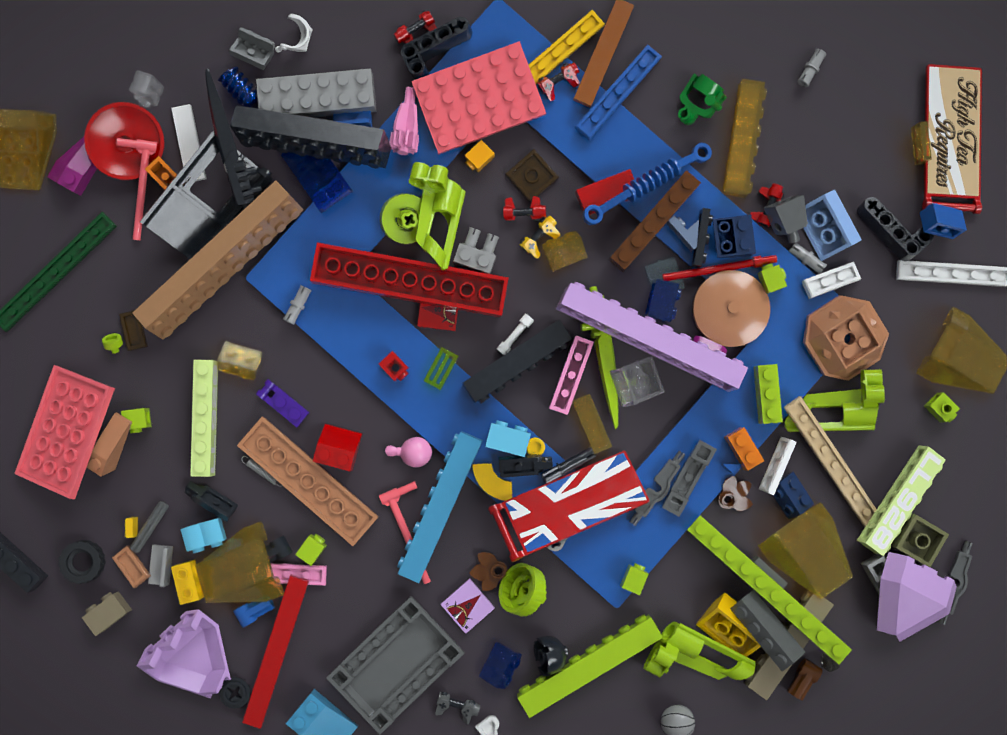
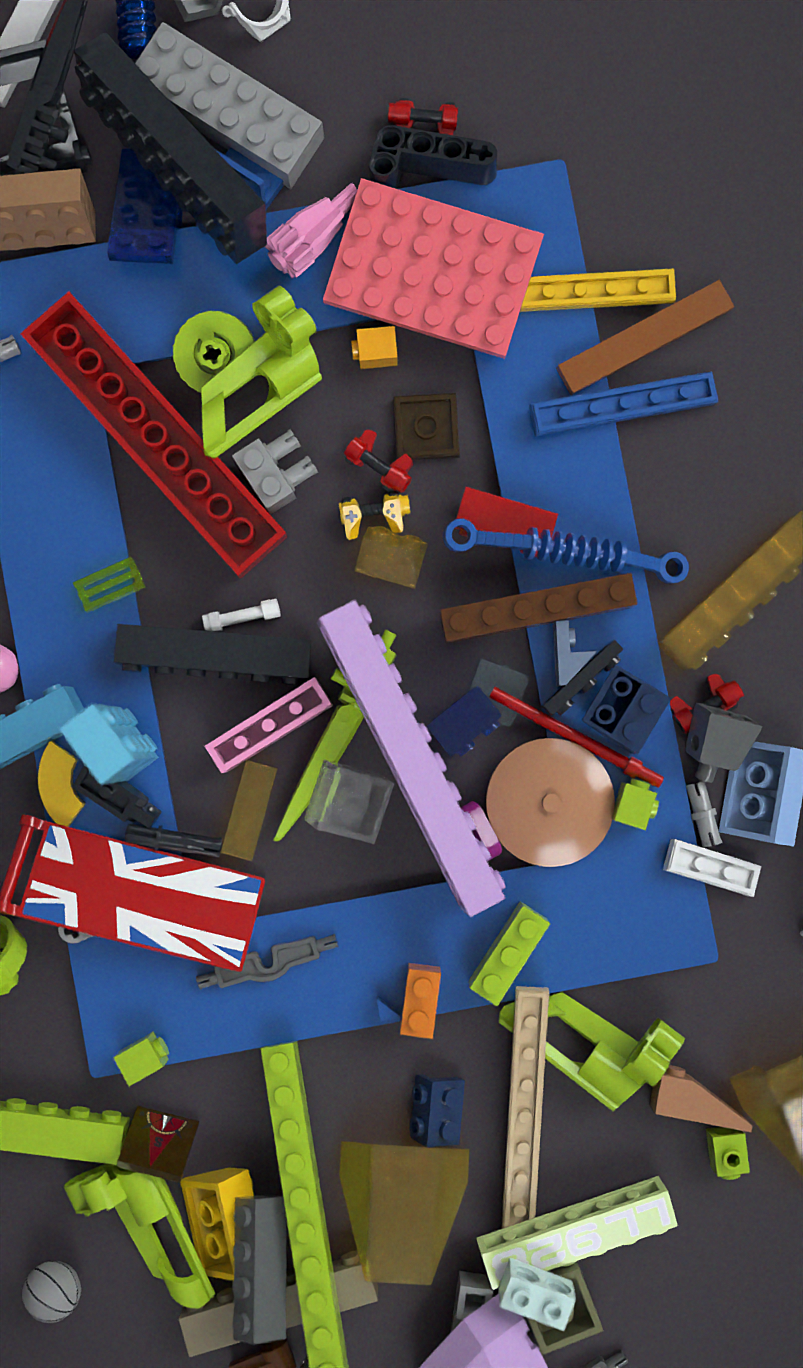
camera: 45 degrees right, 0 degrees up
(387, 364) = (43, 524): red brick -> none
(437, 317) = (159, 515): red tile -> none
(535, 446) = (151, 782): yellow tile -> none
(568, 72) = (577, 326): piece -> none
(674, 613) = (158, 1144): none -> dark brown tile
(688, 477) = (317, 981): dark grey slope -> none
(713, 97) = (743, 504): green piece -> none
(737, 492) = (368, 1050): plate -> none
(770, 572) = (327, 1188): dark grey tile -> none
(777, 465) = (448, 1056): white tile -> none
(826, 335) = (662, 927): nougat piece -> none
(904, 397) = (685, 1098): none -> nougat slope
(905, 539) = (536, 1294): none -> light aqua brick

